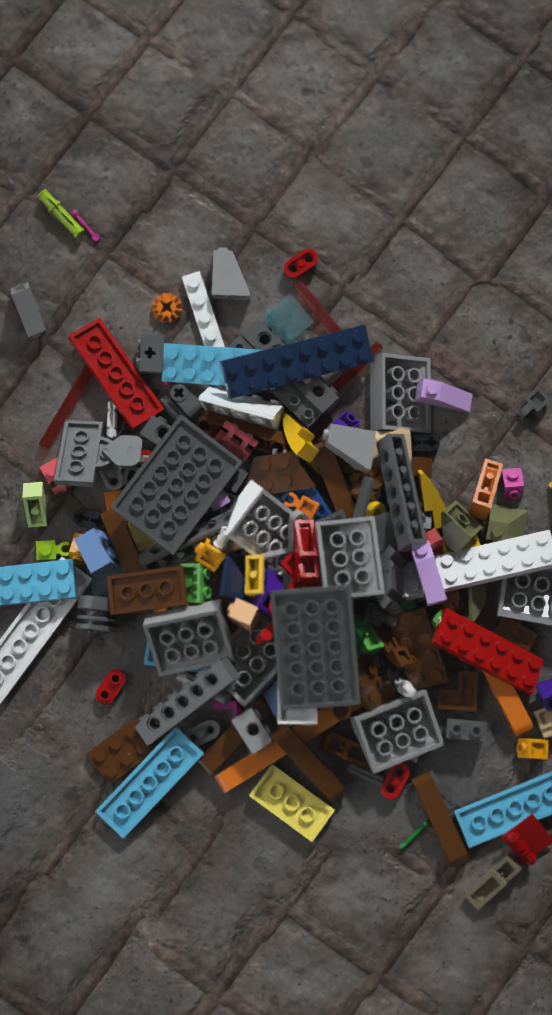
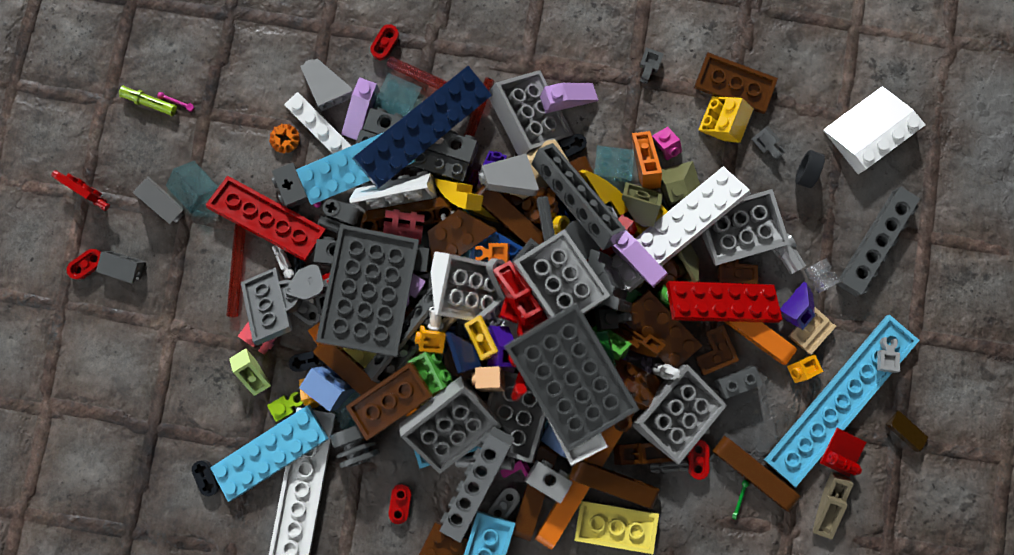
camera: 25 degrees left, 0 degrees up
(62, 310) = (191, 185): none -> clear light blue slope
(248, 314) = (359, 107): none -> lavender slope
(454, 477) = (614, 163): none -> clear light blue hinge

